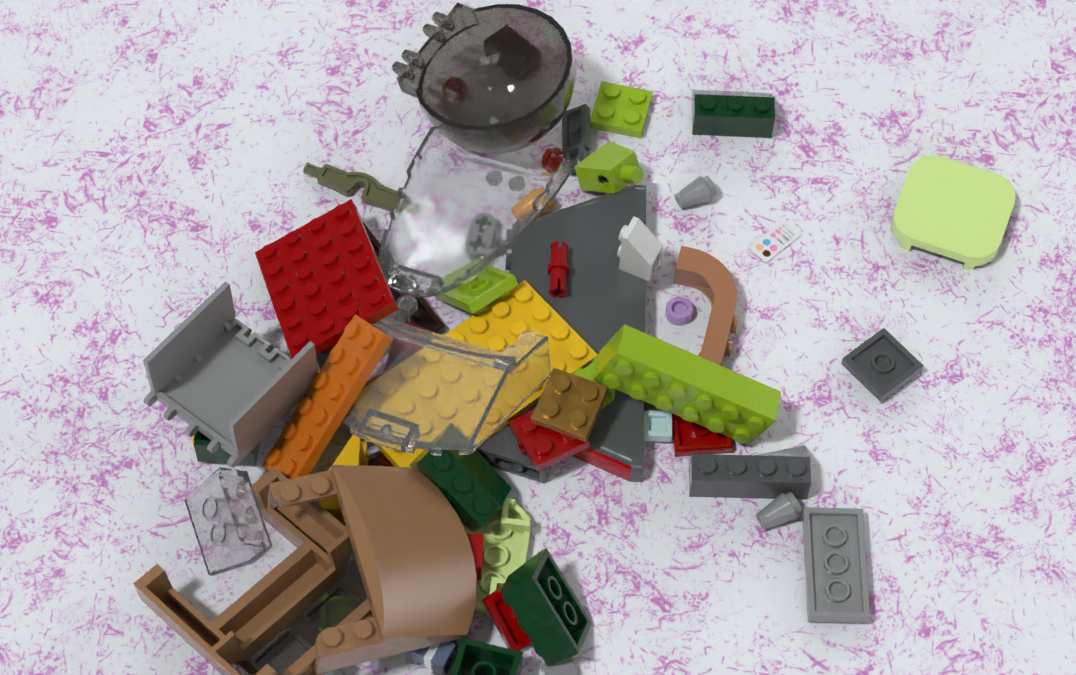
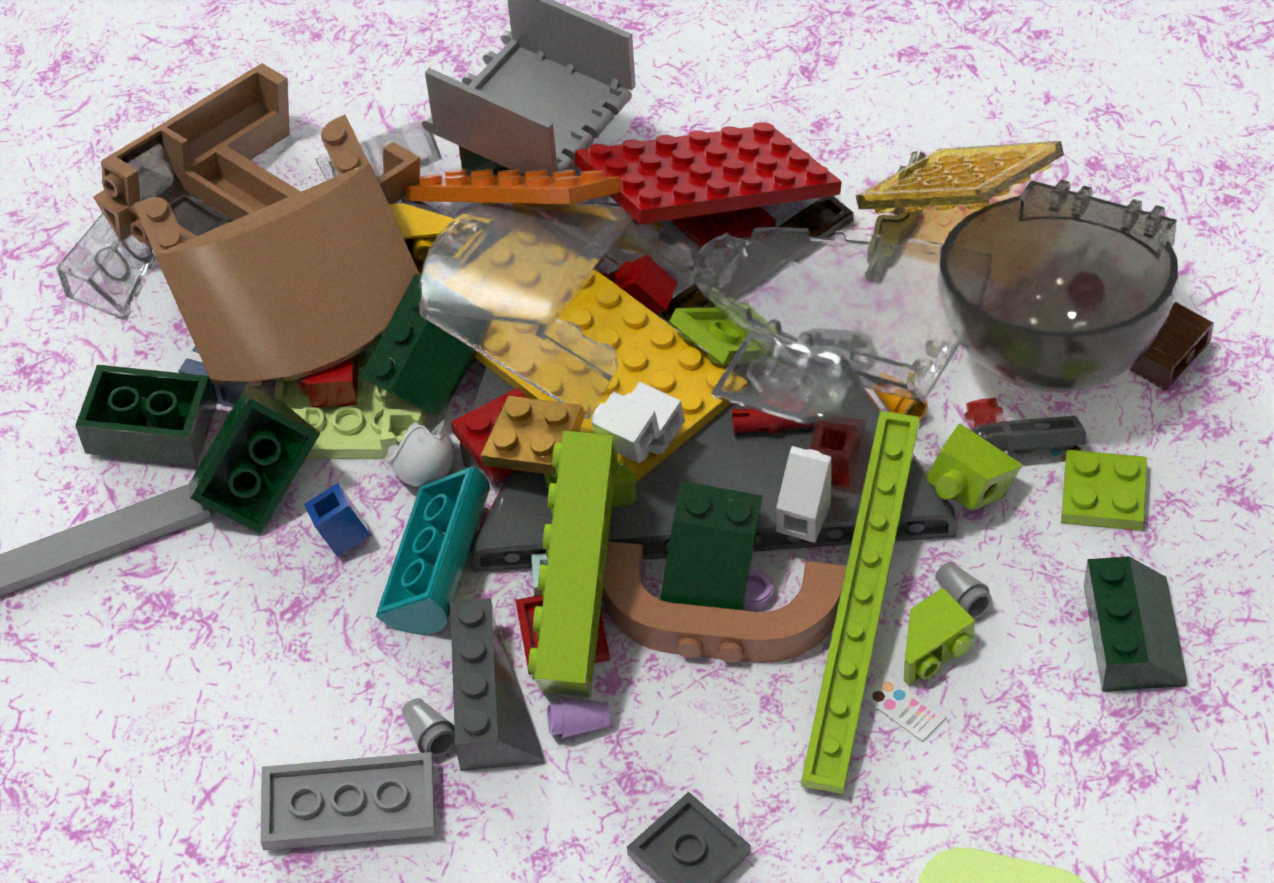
camera: 90 degrees right, 5 degrees down
(365, 127) = (960, 177): none -> clear yellow plate
(545, 498) = (422, 455): none -> white helmet
(548, 245) = (788, 379): none -> clear slope
(579, 333) = (639, 421): none -> white brick
(594, 229) = (841, 440): none -> clear red slope
(601, 557) = (337, 520): none -> blue brick
(635, 494) = (434, 552): none -> teal brick
(664, 313) = (711, 546): none -> dark green slope
(710, 239) = (860, 604): none -> lime plate
(731, 212) = (935, 634): none -> lime slope
(782, 427) = (576, 716): none -> lavender cone

